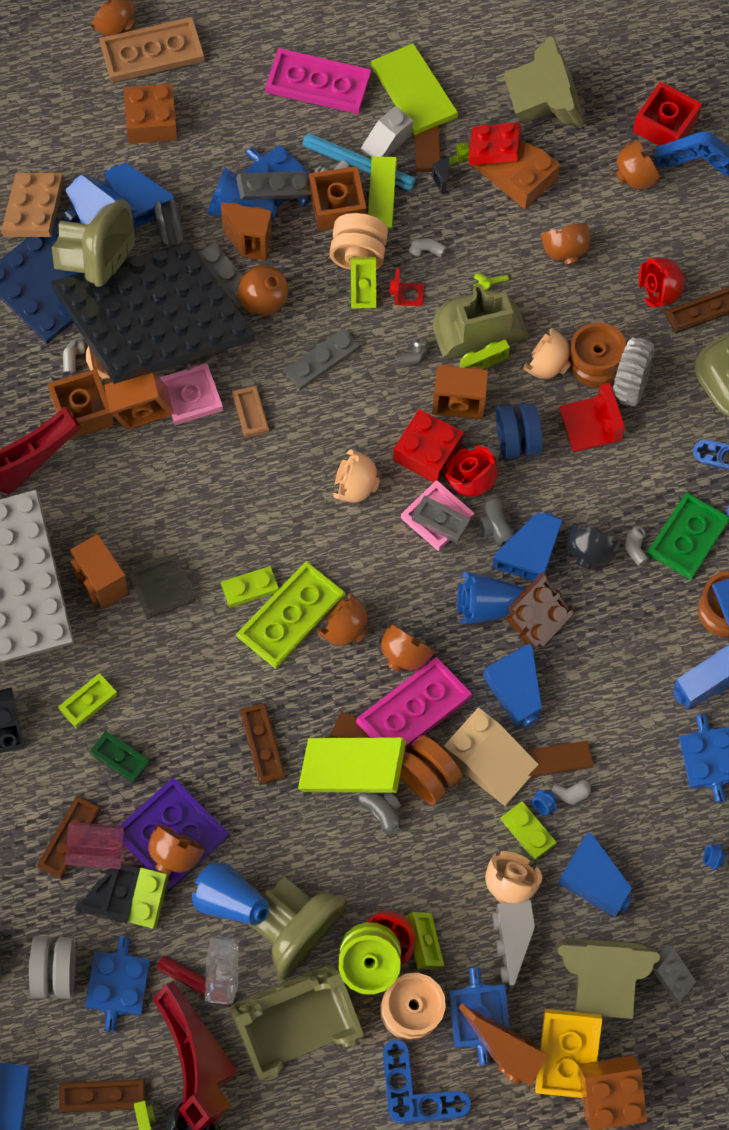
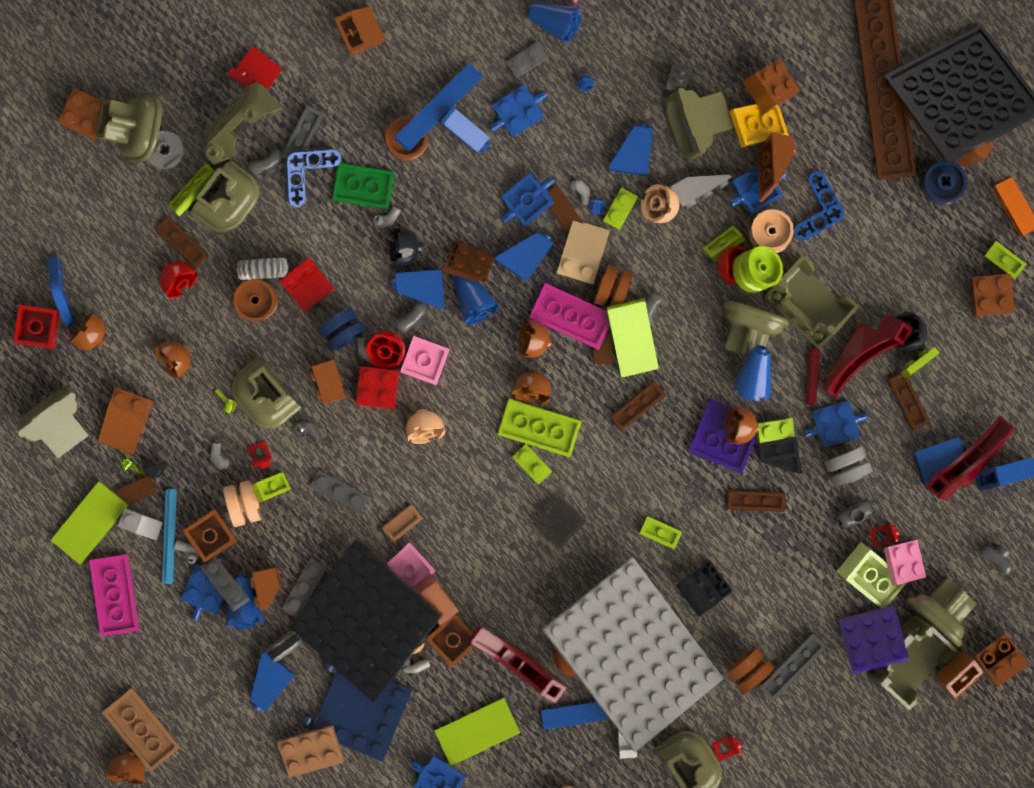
camera: 110 degrees left, 20 degrees up
(90, 195) = (292, 703): slope -> none
(94, 845) = (759, 479): clear pink panel -> none
(98, 246) = (333, 684): olive piece -> none
(98, 572) = (572, 566): dark orange brick -> none
(119, 757) = (689, 493): dark green plate -> none
(150, 113) = (198, 703): dark orange brick -> none
(221, 970) = (802, 360): clear brick -> none
(263, 290) = (308, 555): dark orange cylinder -> none
(382, 189) = (190, 506): lime tile -> none
(440, 519) = (431, 355): flat silver plate -> none
(490, 355) = (297, 385): lime plate -> none
(494, 143) = (114, 442): red plate -> none
(549, 356) = (271, 333): light nougat cylinder -> none
(589, 718) = (528, 199): none -> blue plate

